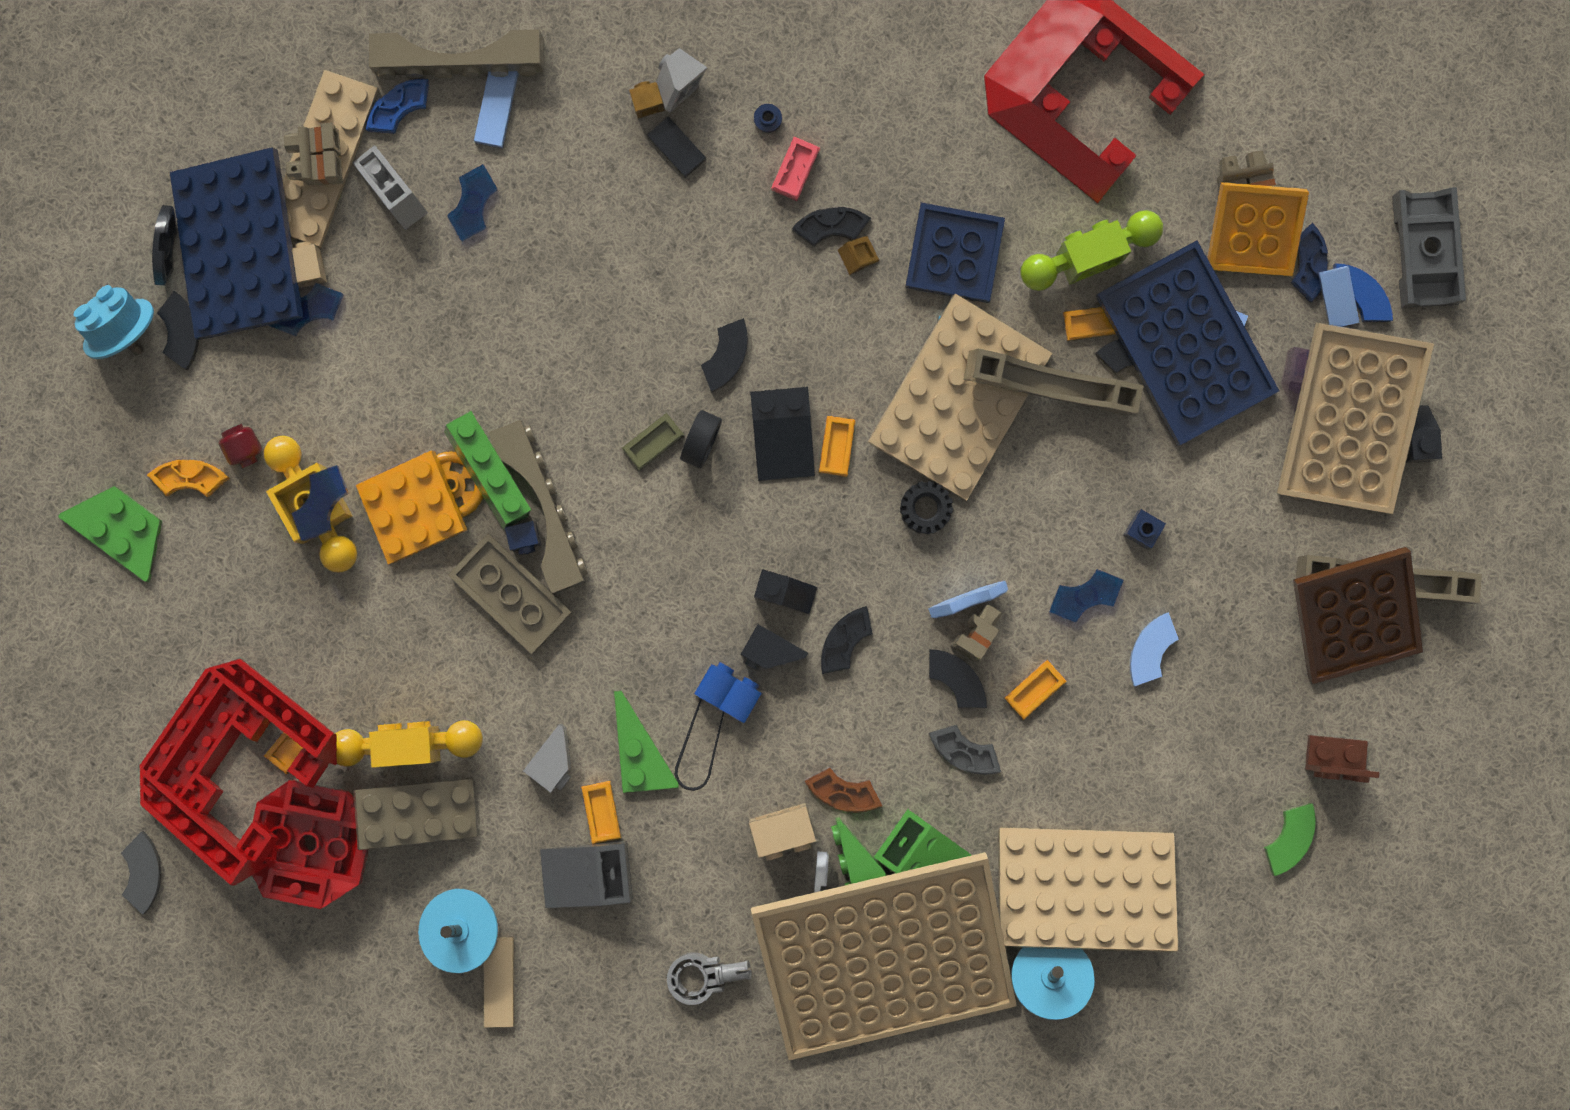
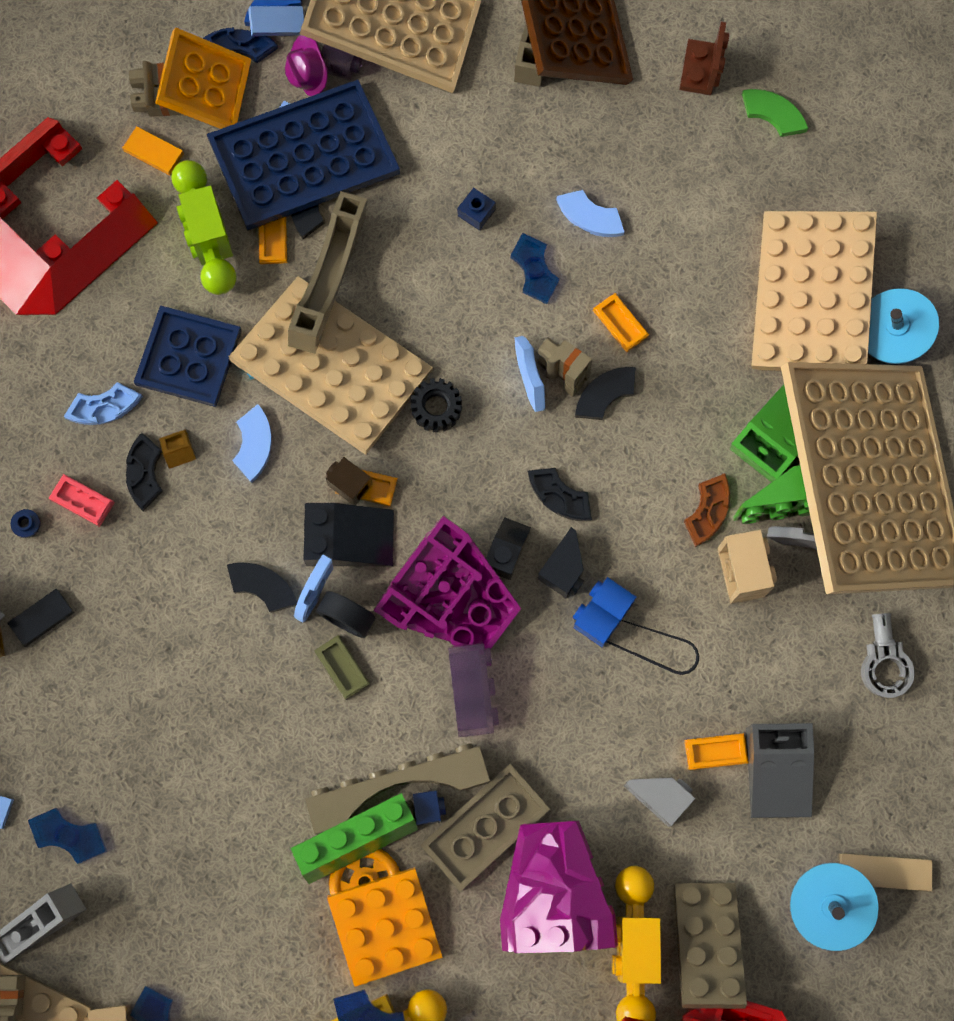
camera: 85 degrees left, 10 degrees down
(446, 662) = (554, 894): none -> magenta wedge
(639, 569) = (472, 689): none -> clear purple brick
(640, 760) = (664, 707): bright green wing -> none
(723, 404) = (312, 589): none -> light blue tile
(731, 537) = (449, 591): none -> magenta wedge
(836, 427) = (348, 480): none -> dark brown brick
(870, 331) = (255, 443): none -> light blue tile
(894, 177) = (103, 407): none -> light blue tile
(963, 753) = (678, 393): dark grey tile -> none
(1177, 187) = (153, 150): none -> light orange tile
(1285, 334) = (306, 66): none -> magenta piece

